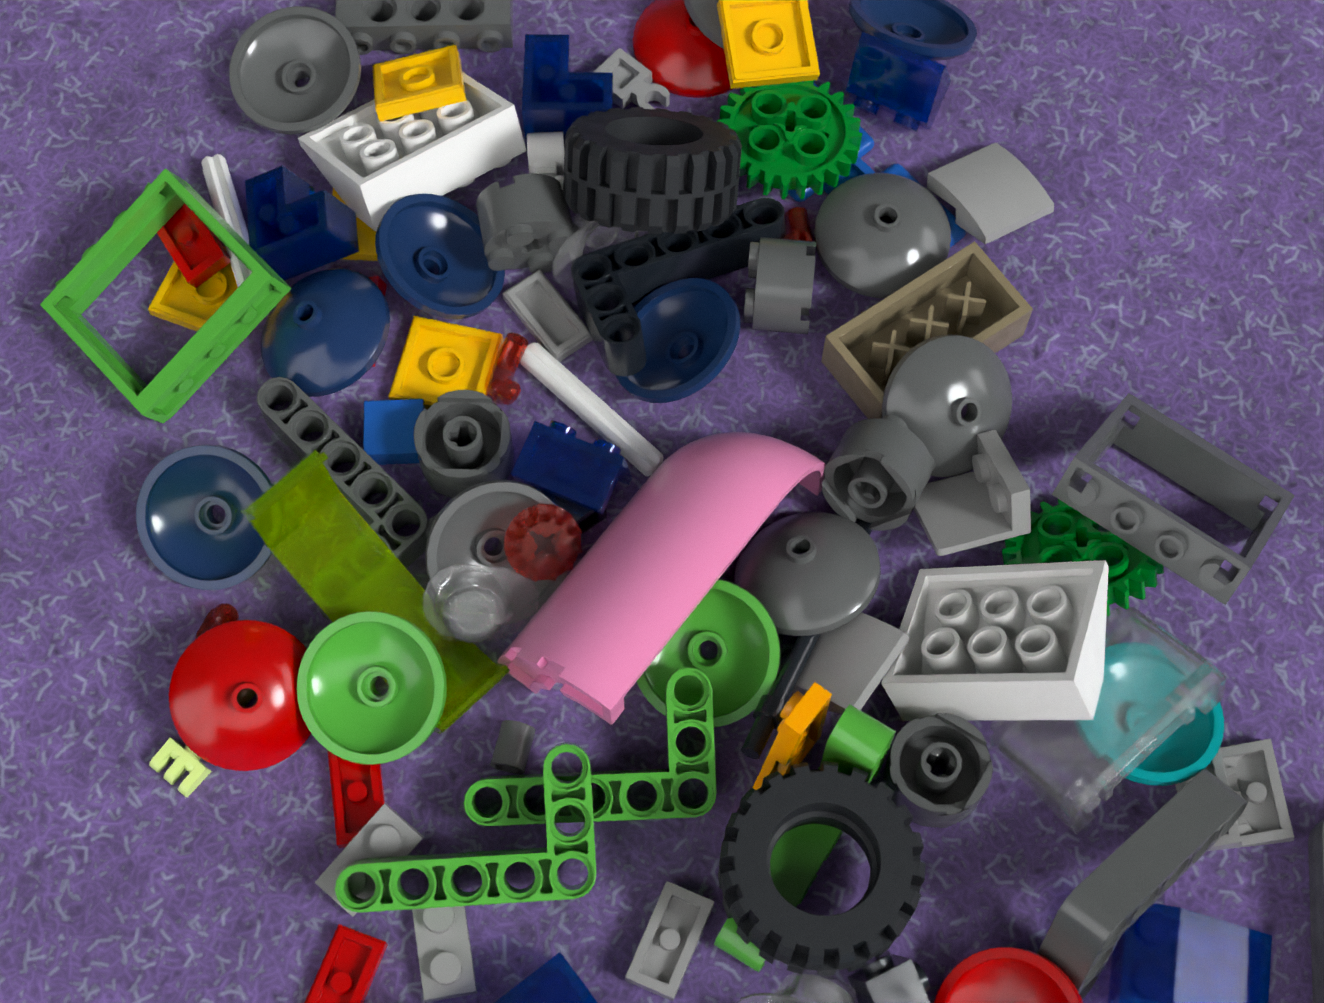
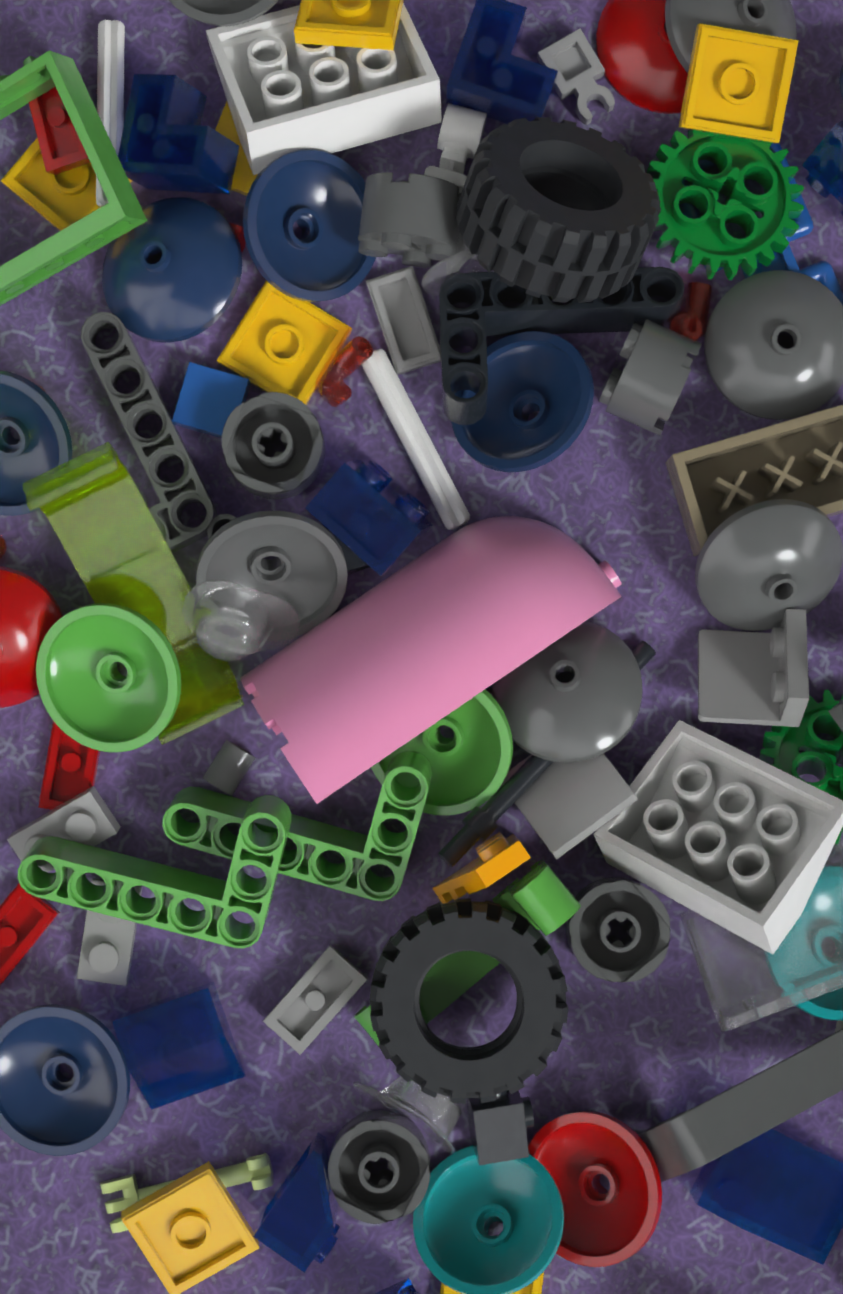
camera: 20 degrees right, 20 degrees up
(543, 520) = (323, 567): clear red gear -> none
(877, 472) = (671, 617): dark grey brick -> none

